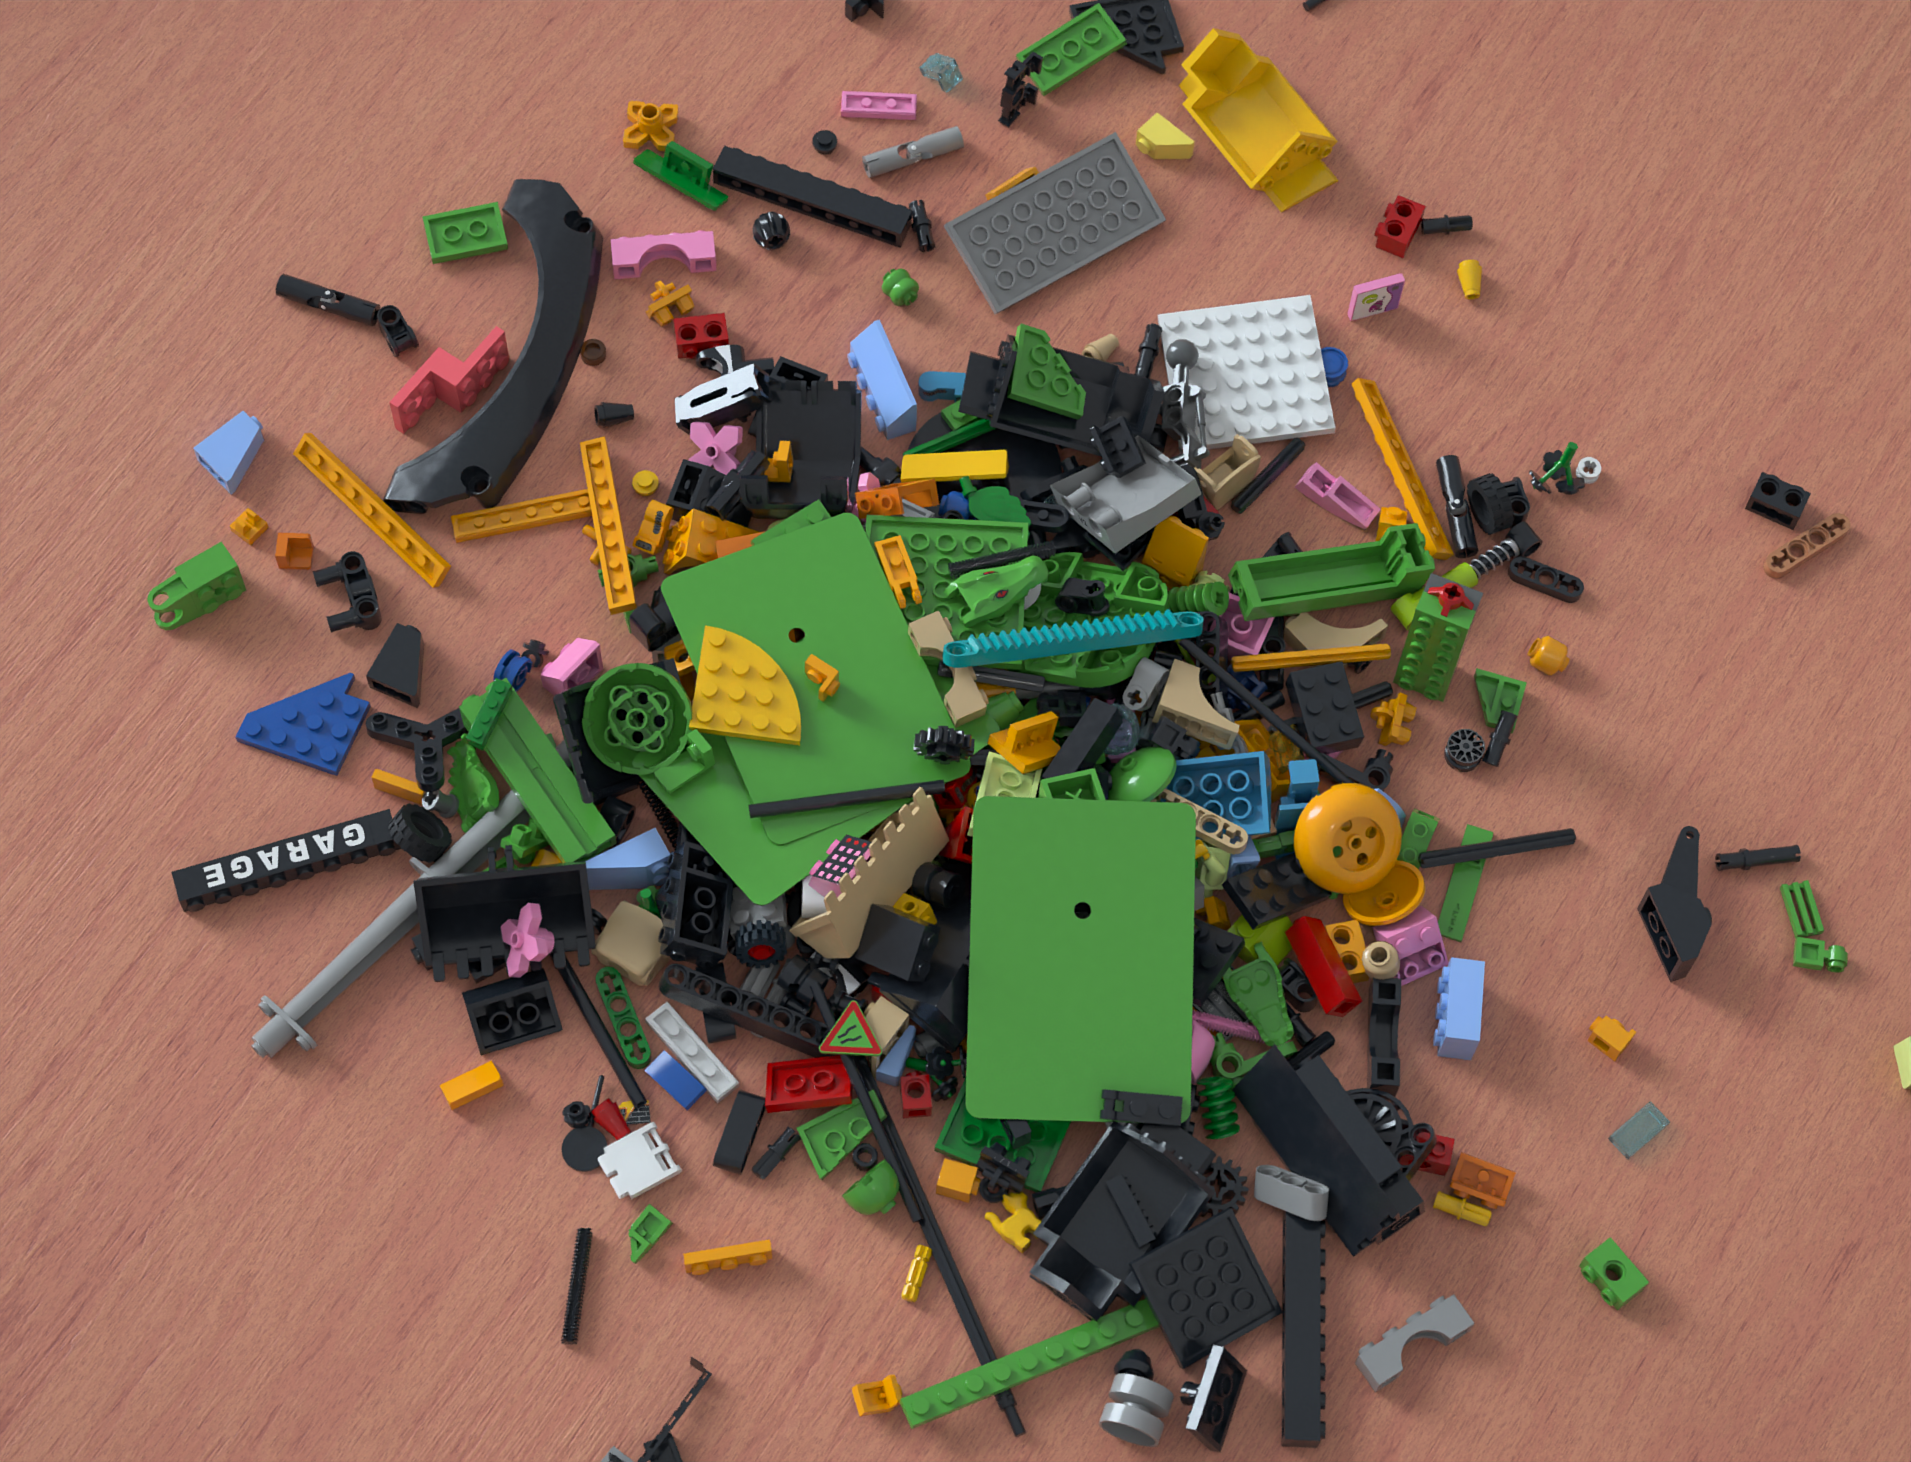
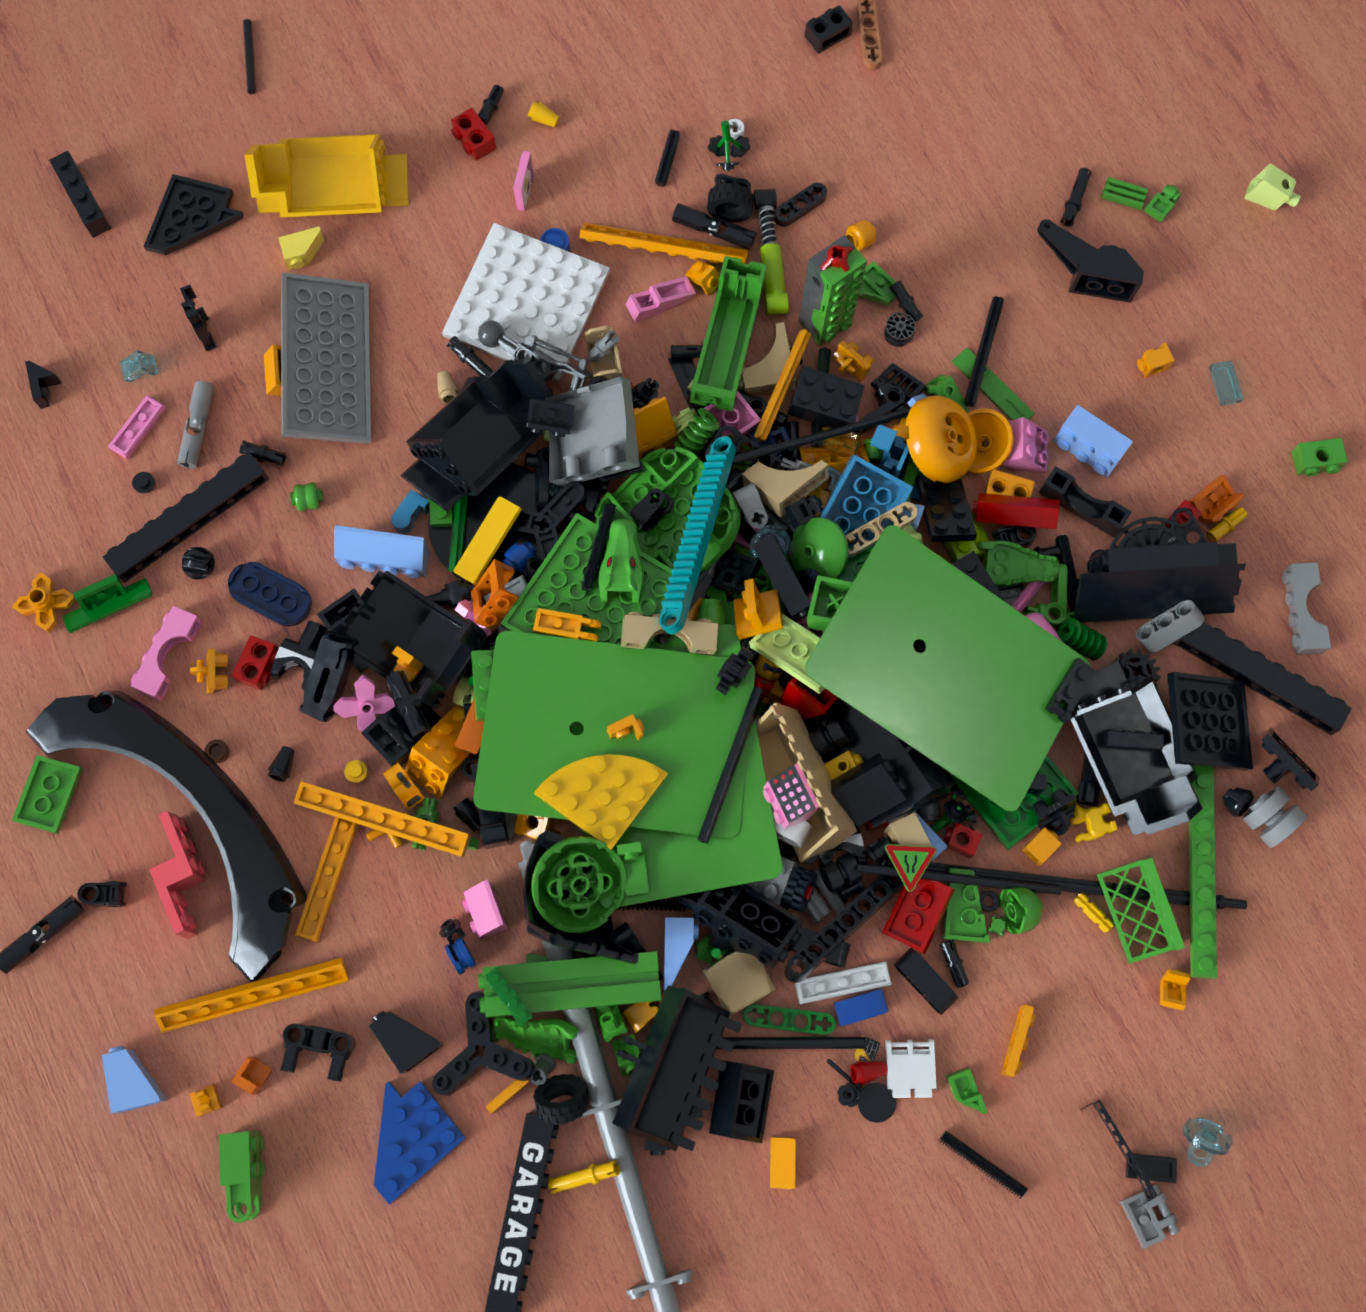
camera: 60 degrees left, 10 degrees up
(360, 900) = (593, 1175): none -> yellow pin
(526, 940) = (707, 1062): bright pink plant -> none
(780, 311) = (269, 594): none -> dark blue tile
(843, 1180) = (997, 926): none -> bright green piece
(967, 1325) = (1159, 901): none -> bright green fence
(993, 503) = (540, 529): green animal -> none
(1043, 376) = (461, 434): bright green plate -> none
(1074, 48) = (183, 263): bright green plate -> none
(1233, 459) = (603, 346): none -> light grey axle
(1268, 475) = (610, 320): black axle -> none
(1381, 960) = (1036, 463): tan head -> none
(1405, 803) = (917, 385): none -> black slope
(1507, 422) = (667, 158): none -> black axle

